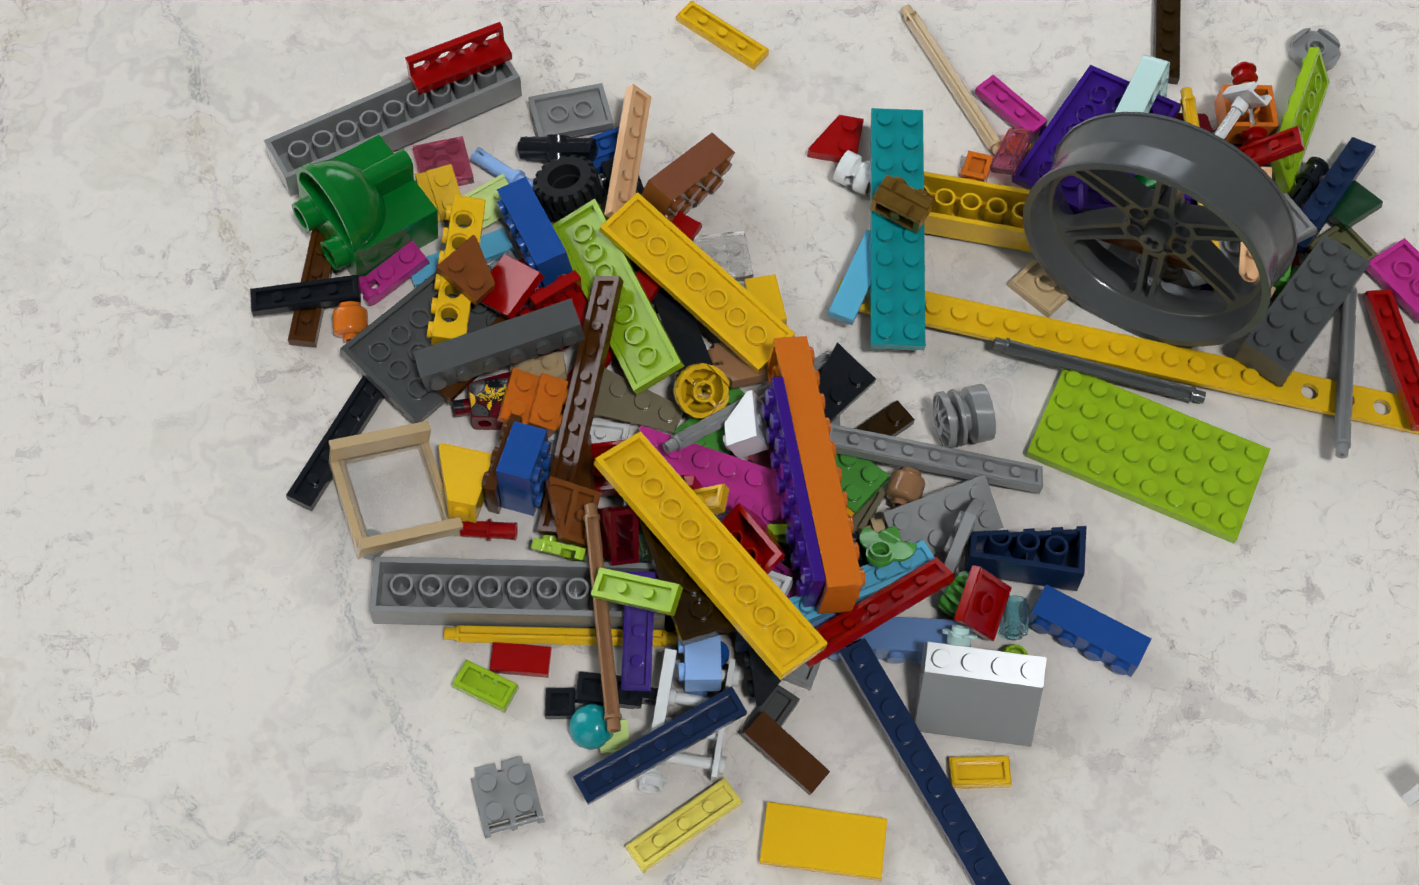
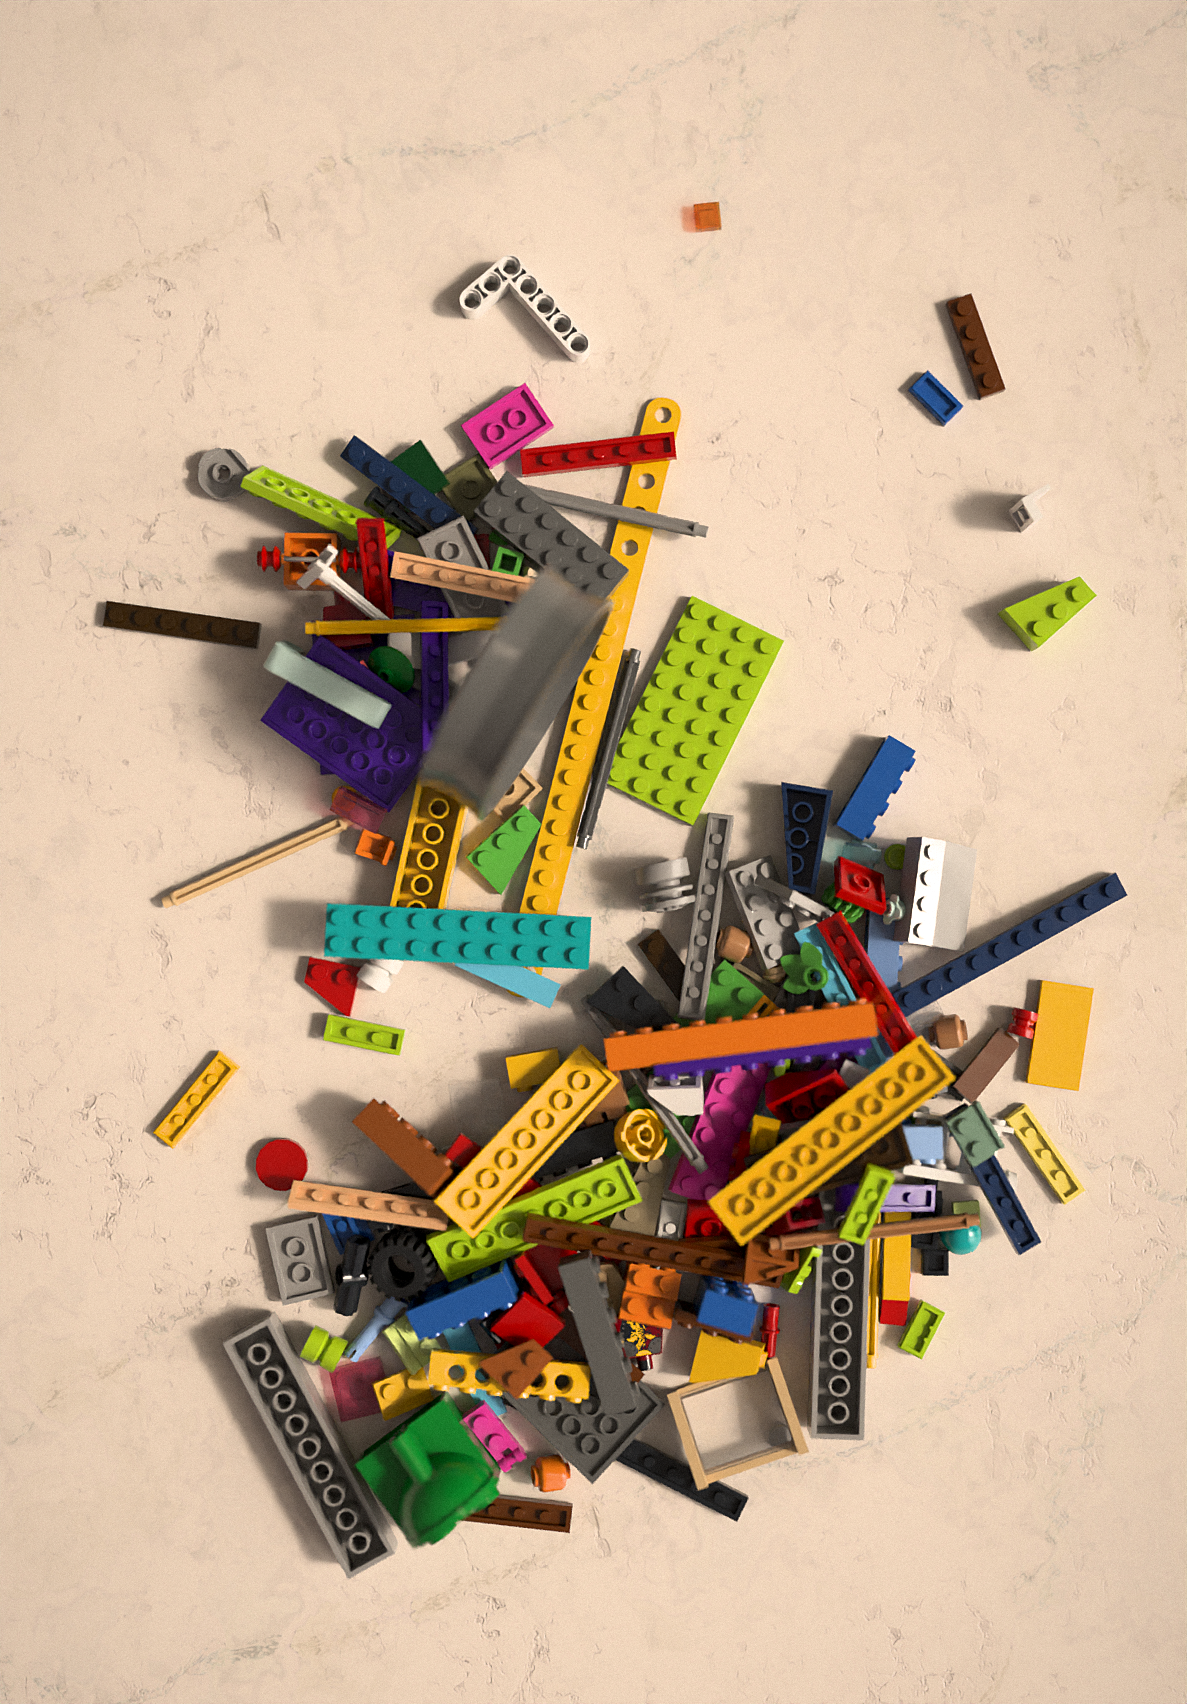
camera: 90 degrees left, 25 degrees up
(304, 295) = (523, 1520): black tile -> none
(458, 62) = (254, 1384): red fence -> none
(485, 128) = (323, 1348): none -> lime wheel
(506, 795) = (1018, 1307): light grey plate -> none
(564, 656) = (896, 1261): none -> yellow tile
(667, 99) = (281, 1164): none -> red tile
(714, 716) = (974, 1133): none -> sand green plate
(790, 163) = (364, 1034): none -> lime plate
(822, 711) = (948, 1032): none -> medium nougat head
(837, 794) = (1022, 1022): none -> red wheel
(839, 684) = (925, 1017): none -> clear brick
(902, 203) = (445, 934): pearl gold brick -> none
(980, 772) = (999, 896): yellow tile -> none
(984, 277) = (504, 848): none -> bright green wing
(1010, 105) = (295, 803): dark pink plate -> none
(1318, 819) = (1045, 613): none -> lime wedge

